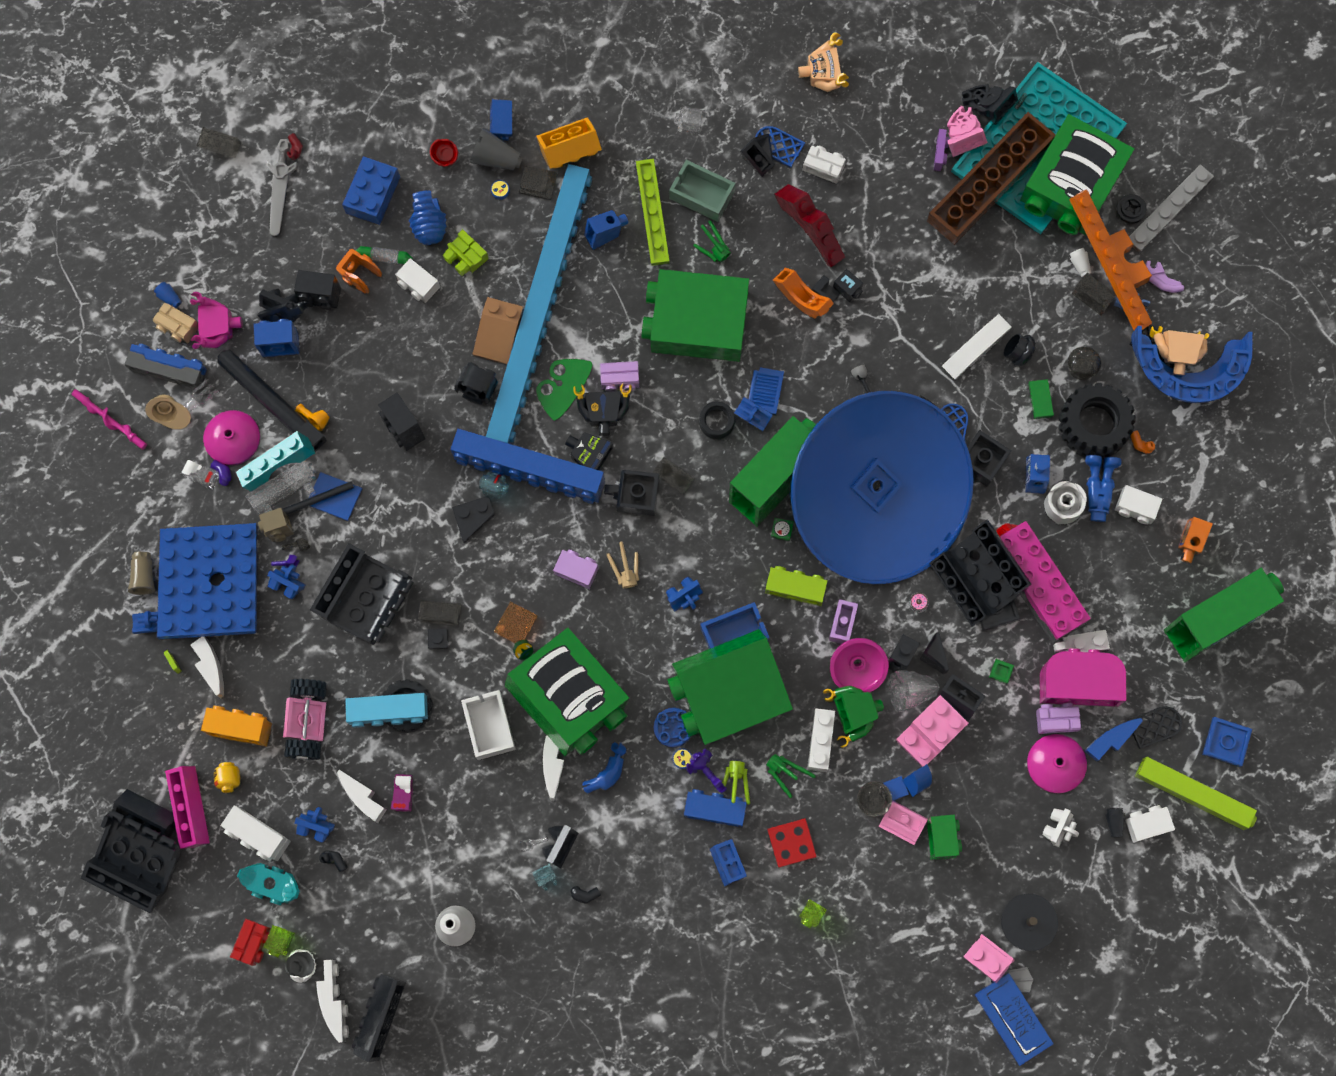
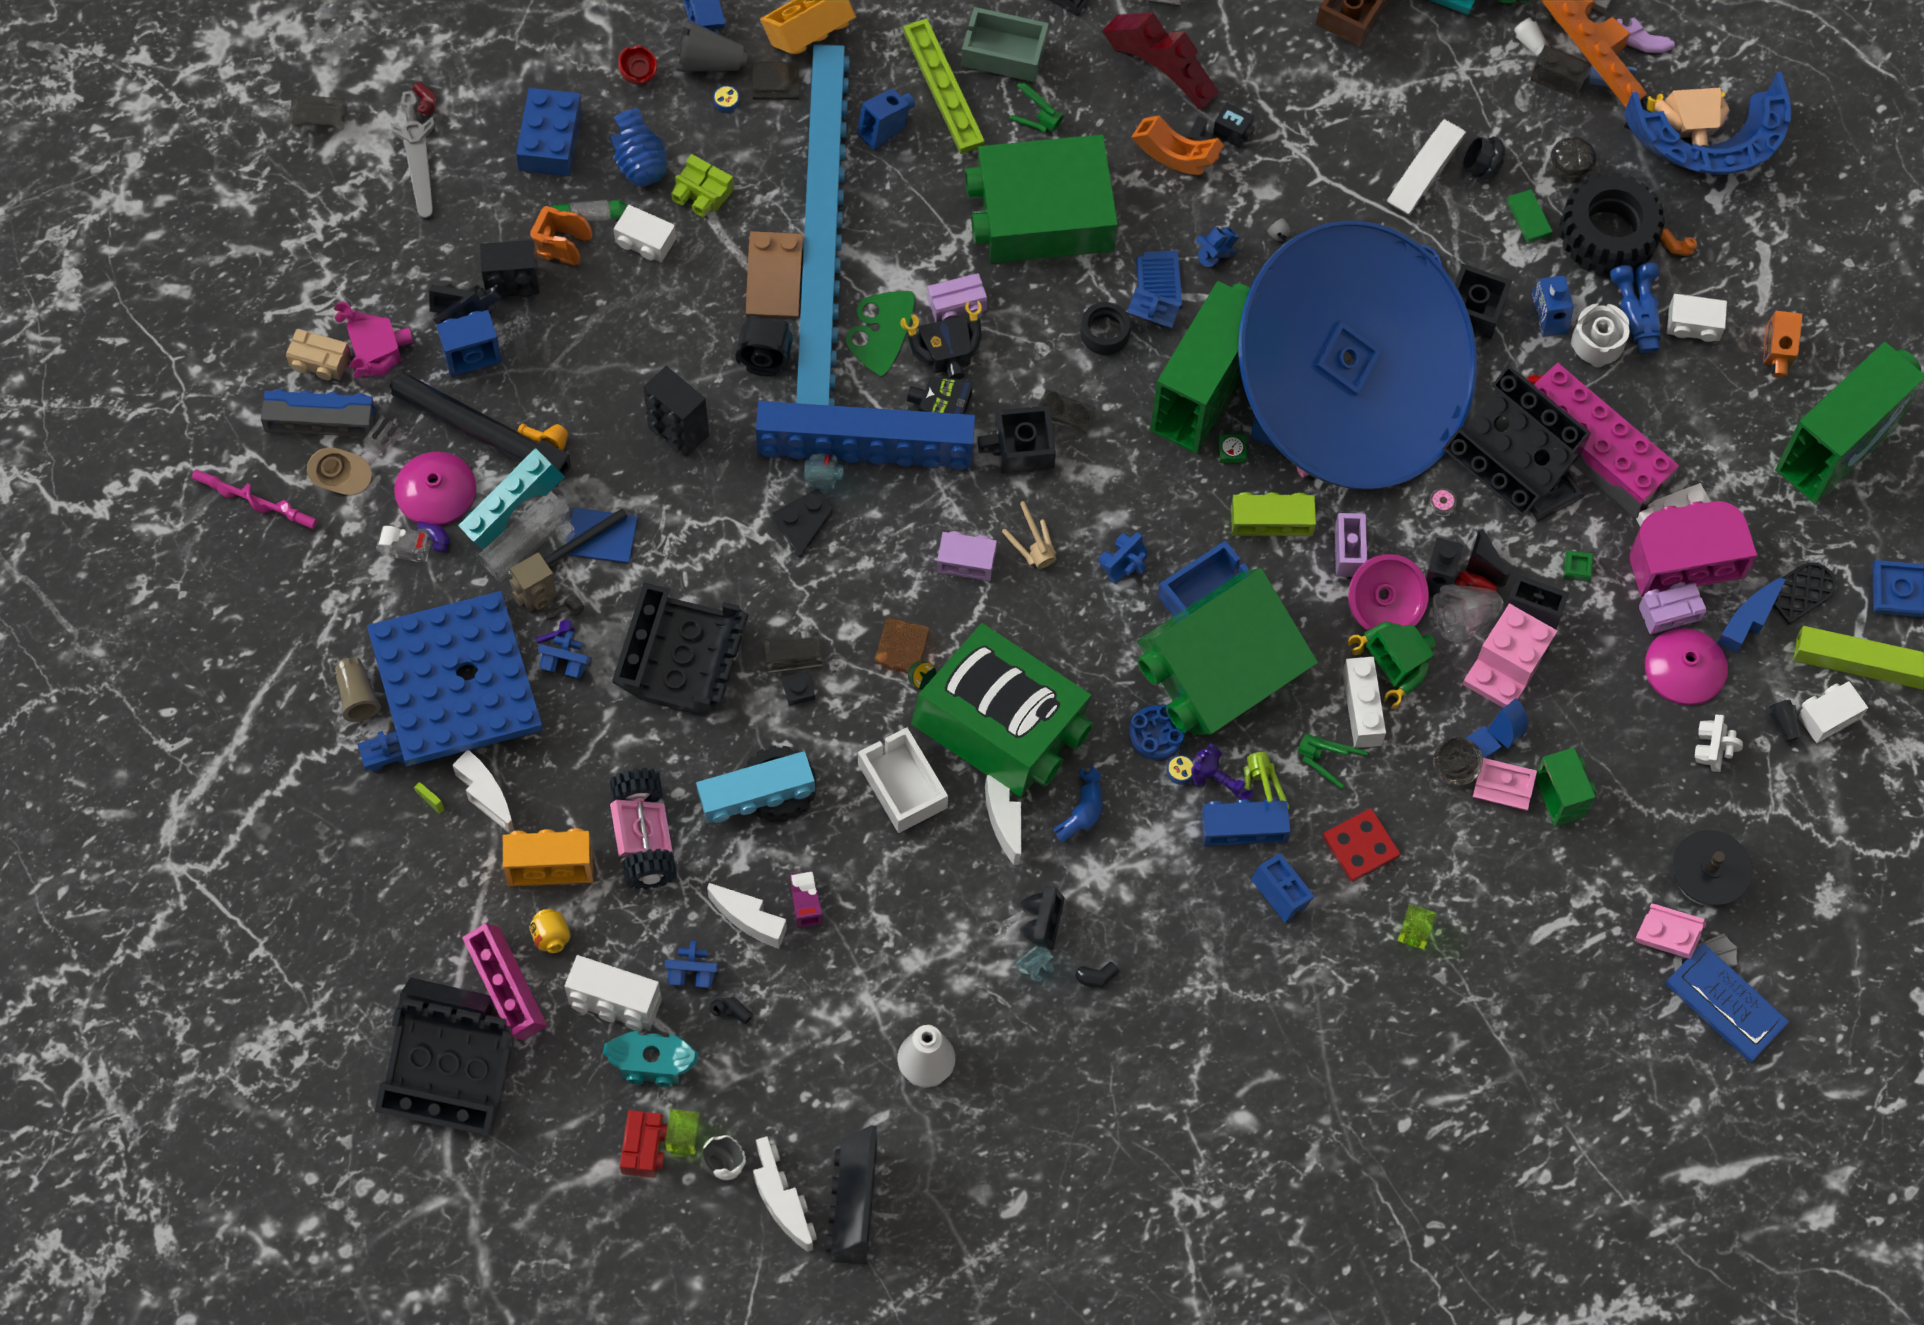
camera: 20 degrees left, 10 degrees down
(167, 294) = (293, 318): blue cone -> none
(811, 375) = (1217, 245): none -> blue hips
(919, 664) = (1467, 578): none -> red arm

